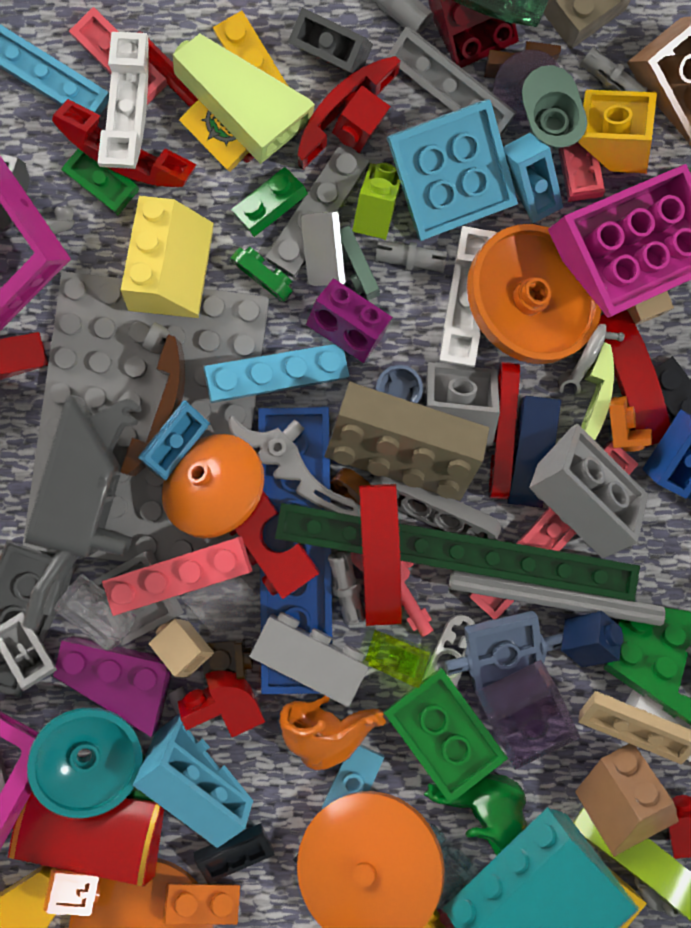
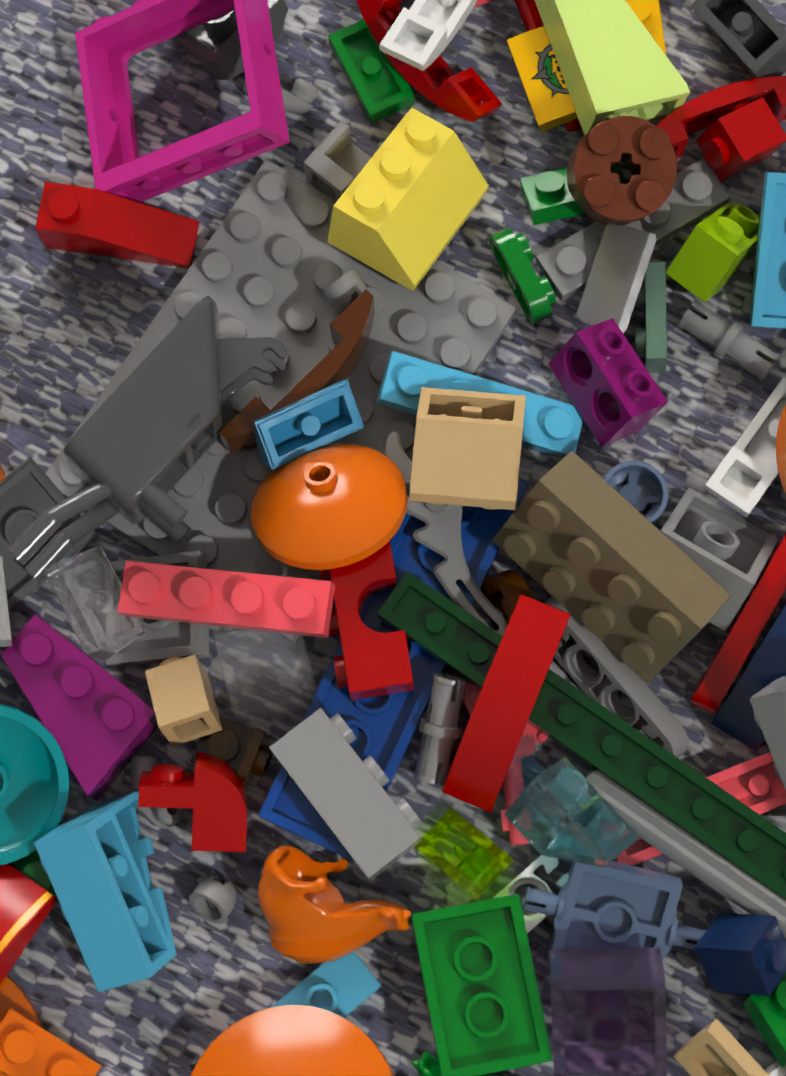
camera: 30 degrees right, 10 degrees down
(108, 253) = (335, 162): none -> light grey panel
(235, 854) = (115, 1016): black plate -> none
(259, 755) = (220, 895): none -> light grey hinge
(282, 409) = (467, 448): none -> tan slope
(304, 159) = (643, 150): none -> copper brick
(454, 610) = (570, 818): none -> clear light blue slope

